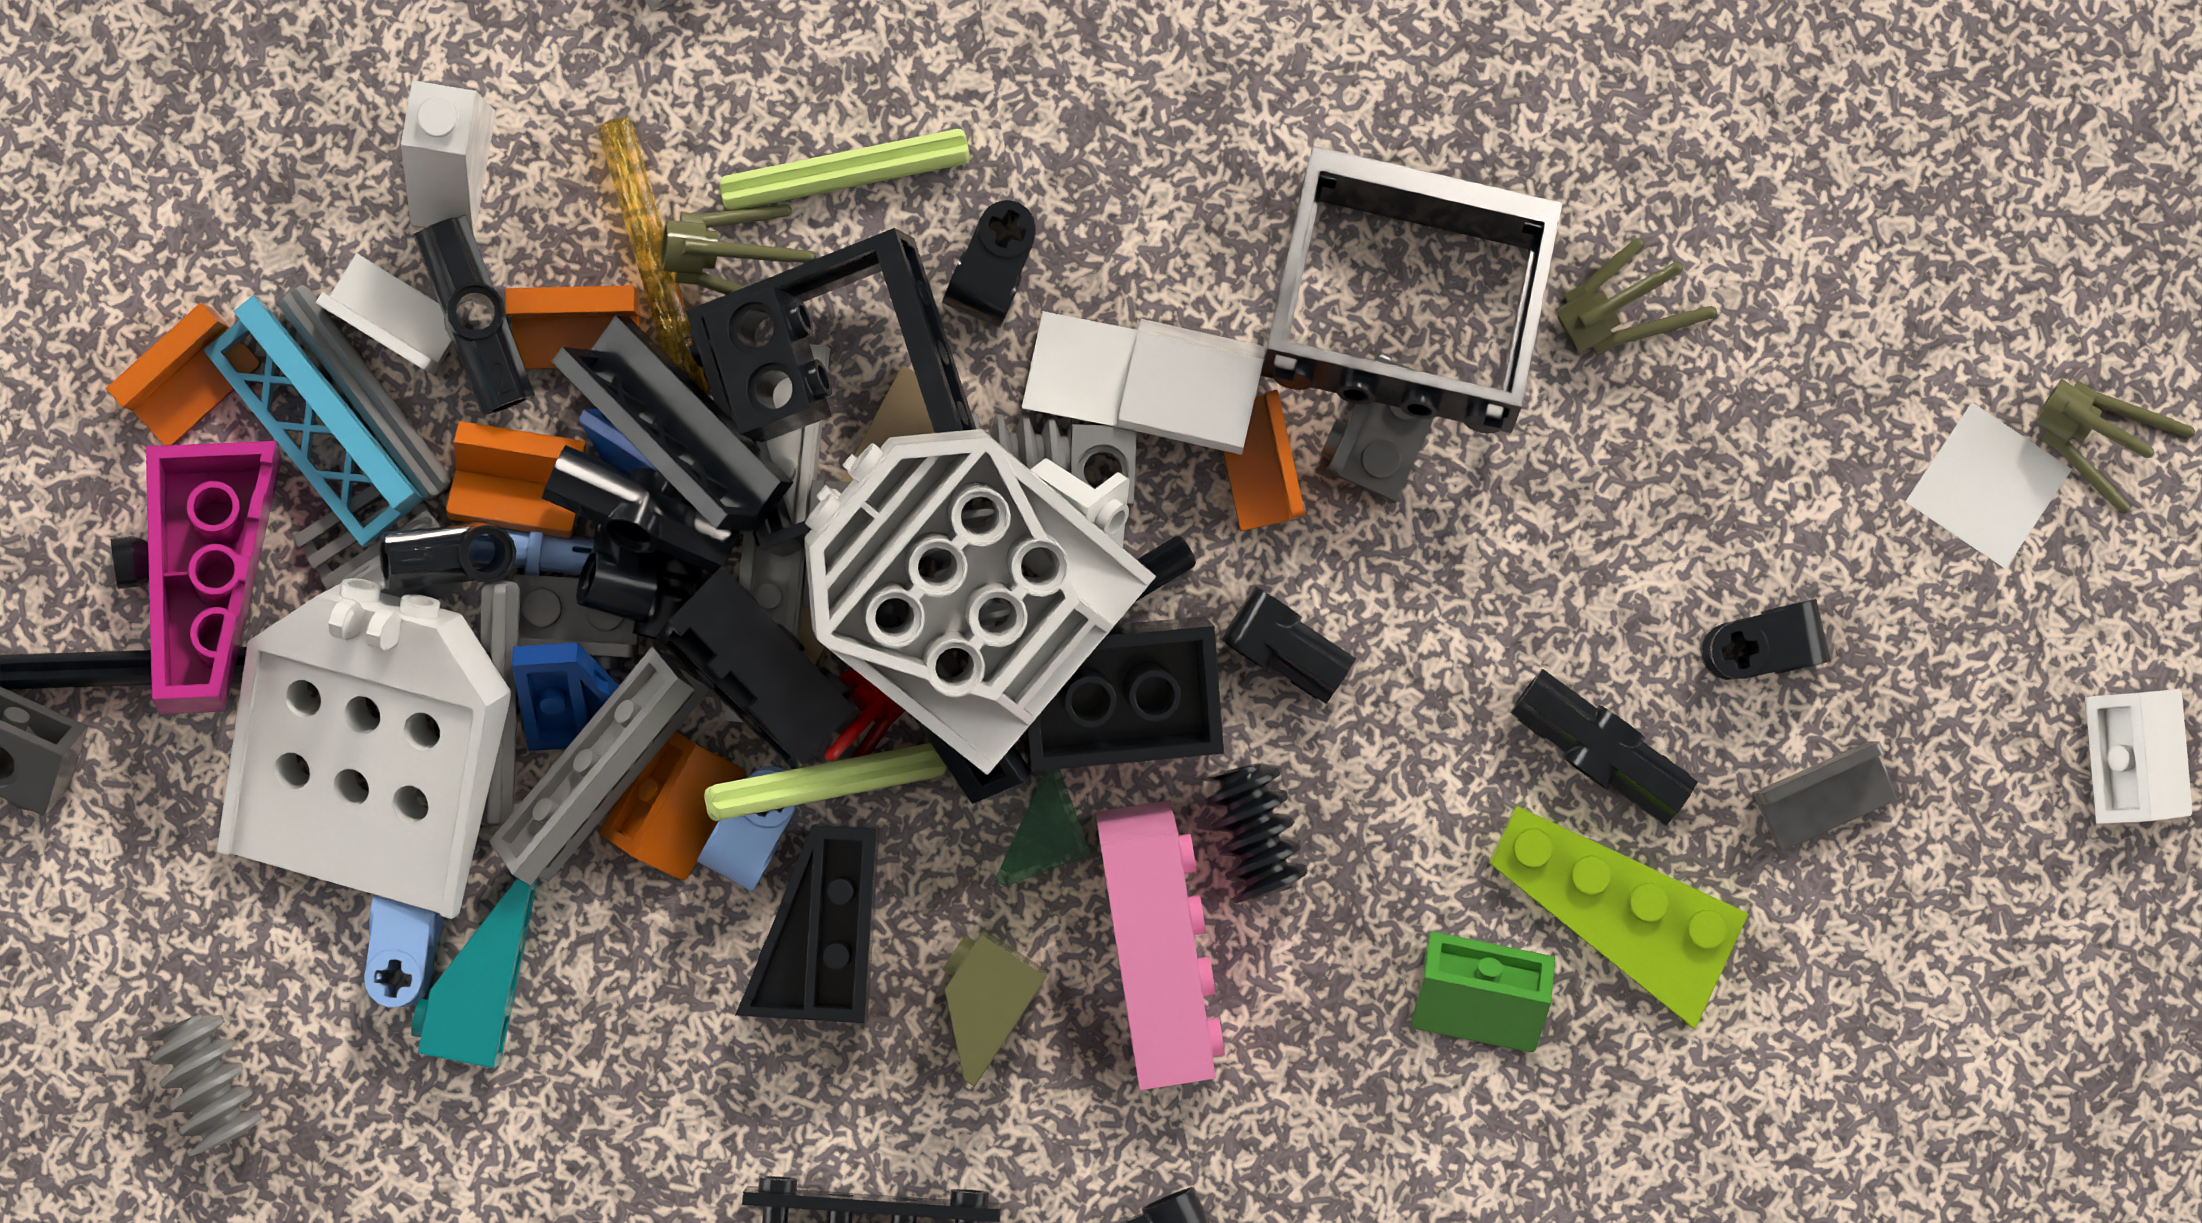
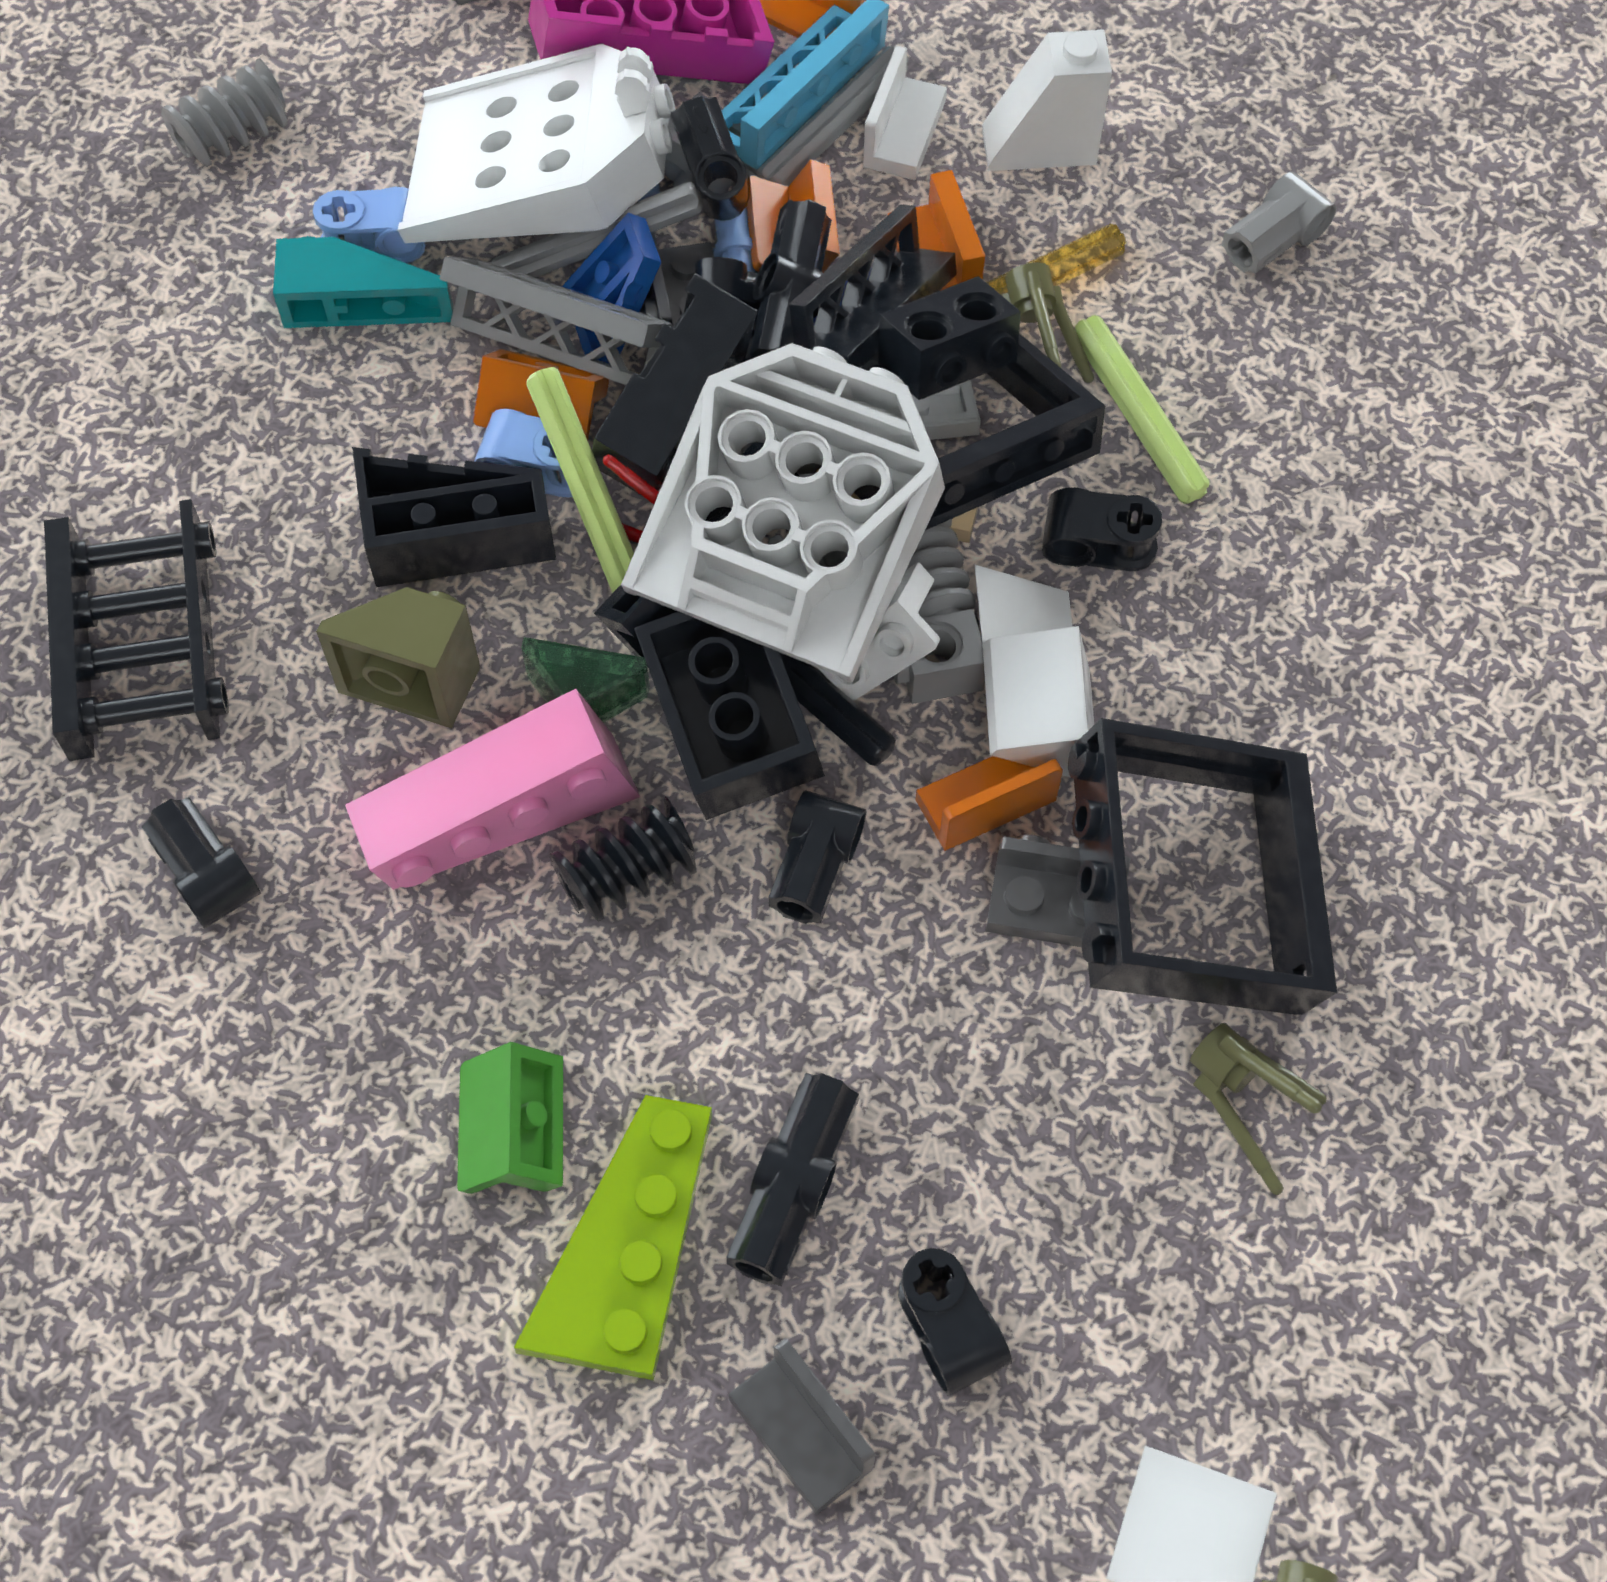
camera: 80 degrees right, 25 degrees down
(460, 277) = (898, 172): black piece -> none

